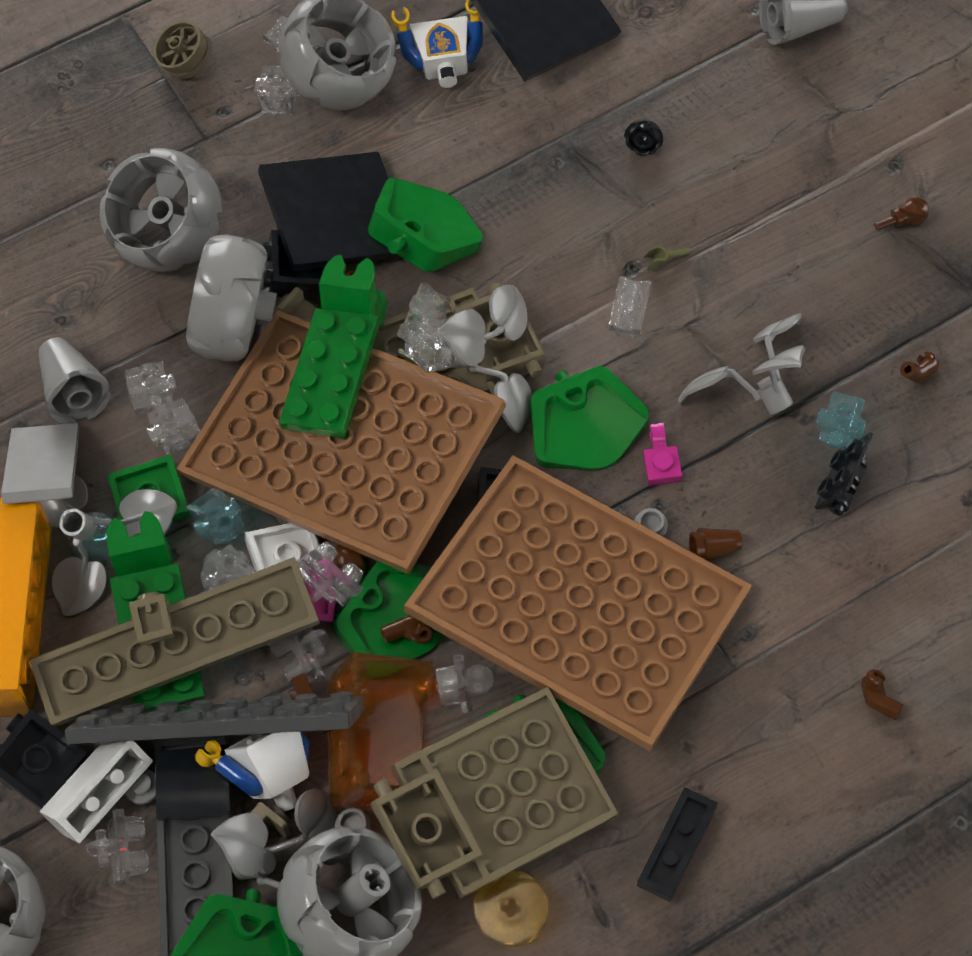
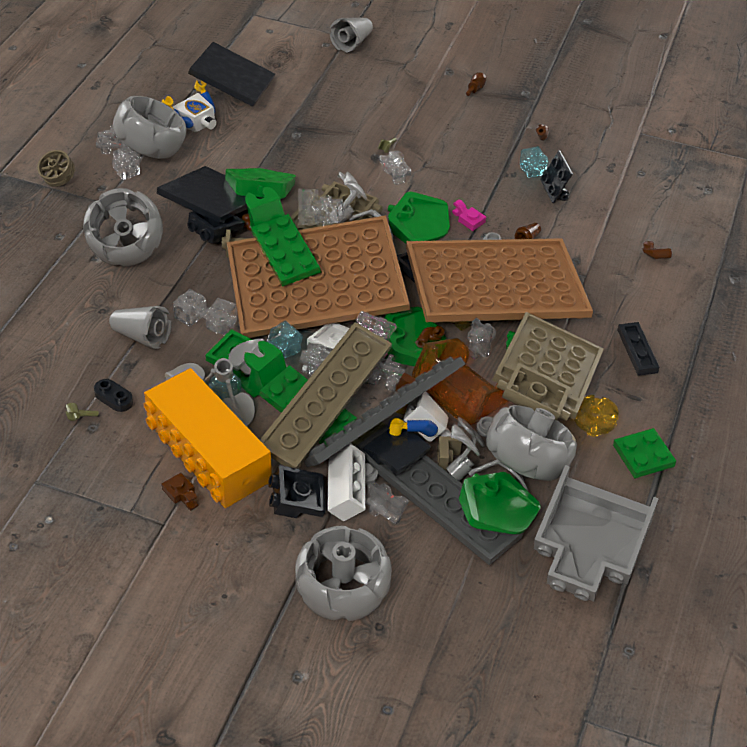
camera: 45 degrees left, 15 degrees down
(40, 463) = (170, 360): light grey tile -> none
(151, 618) = (309, 384): dark tan bracket -> none
(228, 298) = (202, 242): light grey wheel -> none
(643, 145) = (334, 108): black plate -> none
(771, 388) = (492, 166): light grey plant -> none

